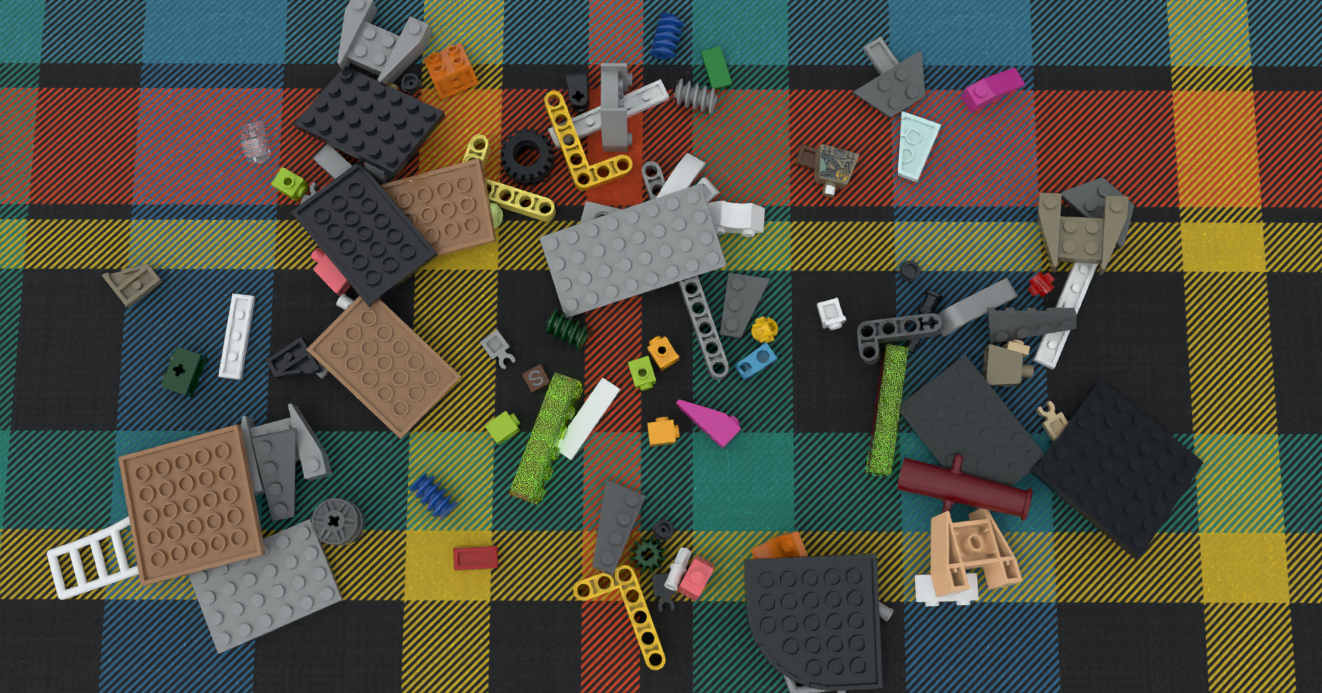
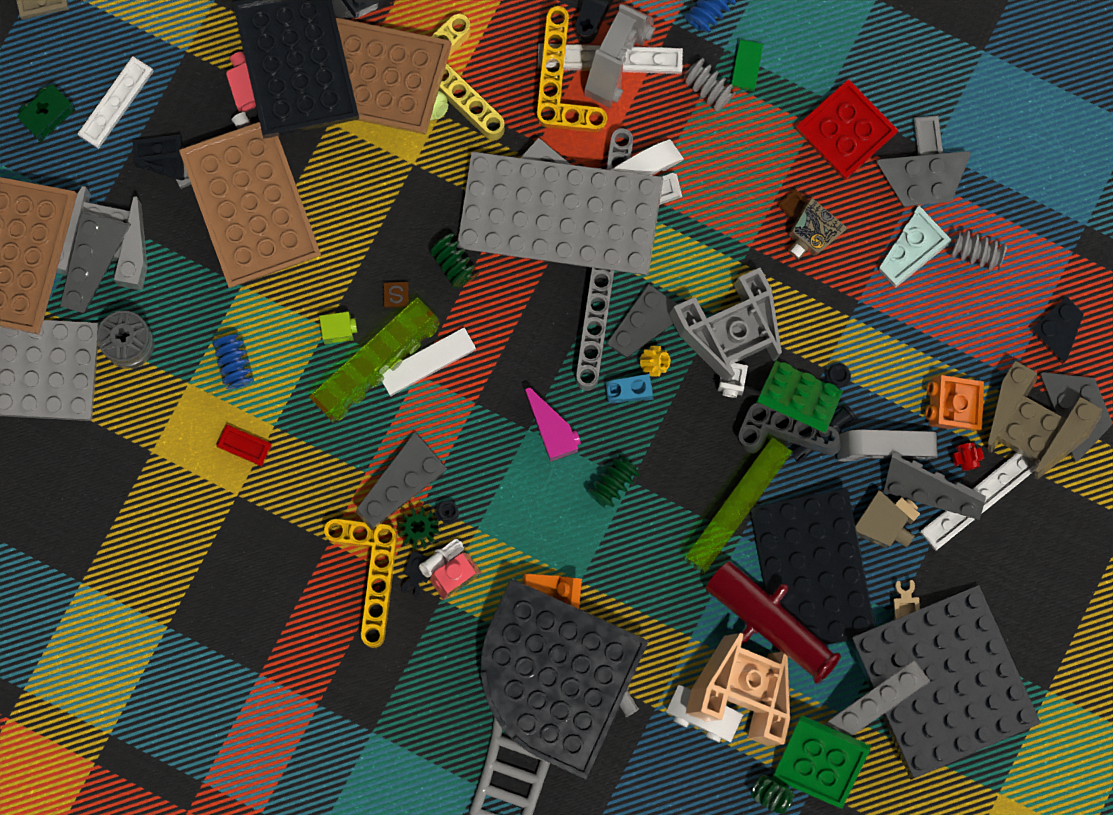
camera: 25 degrees right, 0 degrees up
(496, 346) = (371, 242): light grey plate -> none
(521, 142) = (499, 44): black tyre -> none
(642, 373) = (506, 343): lime brick -> none
(662, 360) = (538, 341): light orange brick -> none
(662, 432) = (496, 413): light orange brick -> none
(737, 218) = (685, 231): white brick -> none
(782, 440) = (613, 483): none -> dark green piece
(815, 276) = (735, 331): none -> light grey wedge
(817, 80) = (846, 129): none -> red plate
(892, 301) = (800, 396): none -> green plate
(966, 121) = (979, 250): none -> light grey piece
(991, 89) = (1027, 228): dark pink slope -> none
(1009, 248) = (955, 403): none -> orange plate
(1032, 625) = (772, 794): none -> dark green gear
(1056, 153) = (1059, 329): none -> black wing
(1058, 579) = (821, 761): none -> green plate
(1073, 523) = (879, 700): none -> light grey plate

